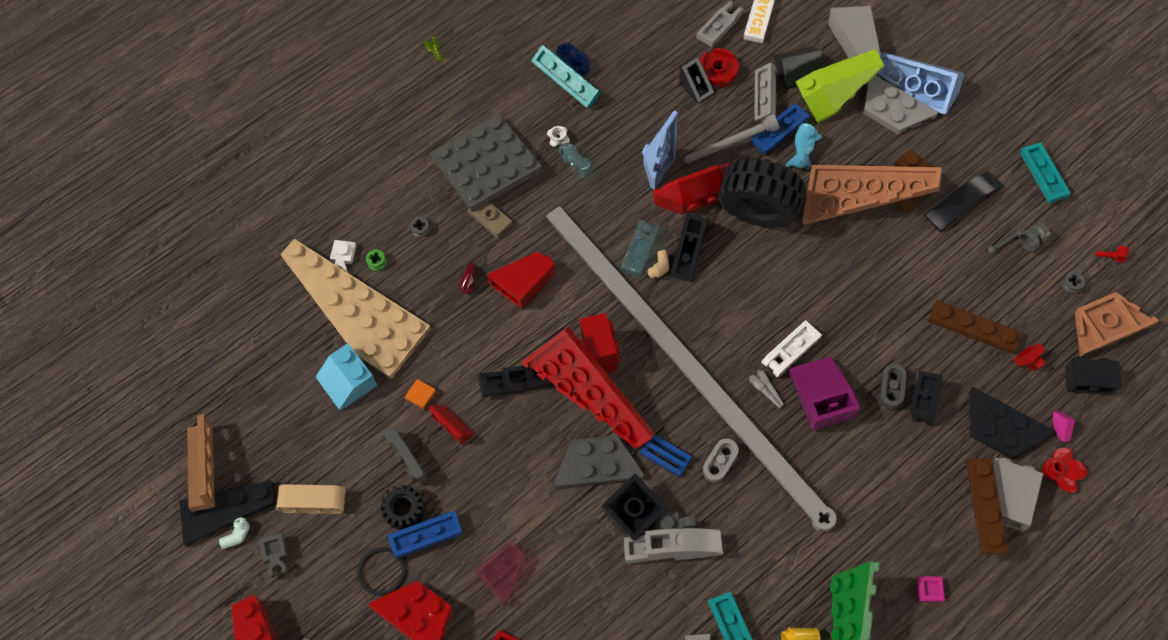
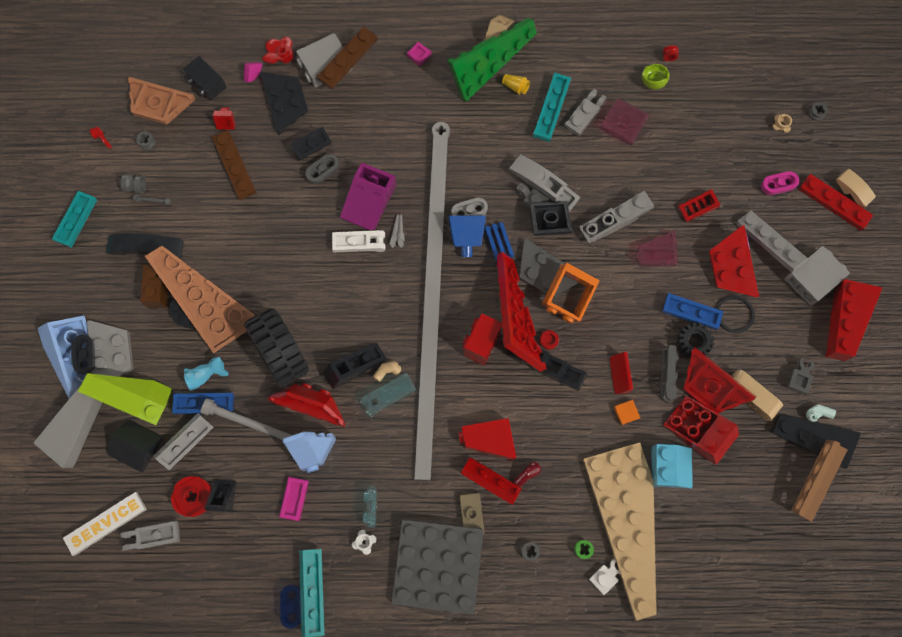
camera: 145 degrees left, 10 degrees up
(340, 429) = (702, 429): none -> red slope
(354, 471) = (713, 385): none -> red wing
(494, 248) = (491, 481): none -> red plate
(541, 402) = (549, 340): none -> red tile
(560, 471) = (579, 276): none -> orange window
(572, 569) = (616, 218): none -> light grey slope
(640, 123) = (294, 499): none -> dark pink tile
(703, 431) = (466, 232): none -> blue torso
(908, 85) = (81, 355): none -> black plate

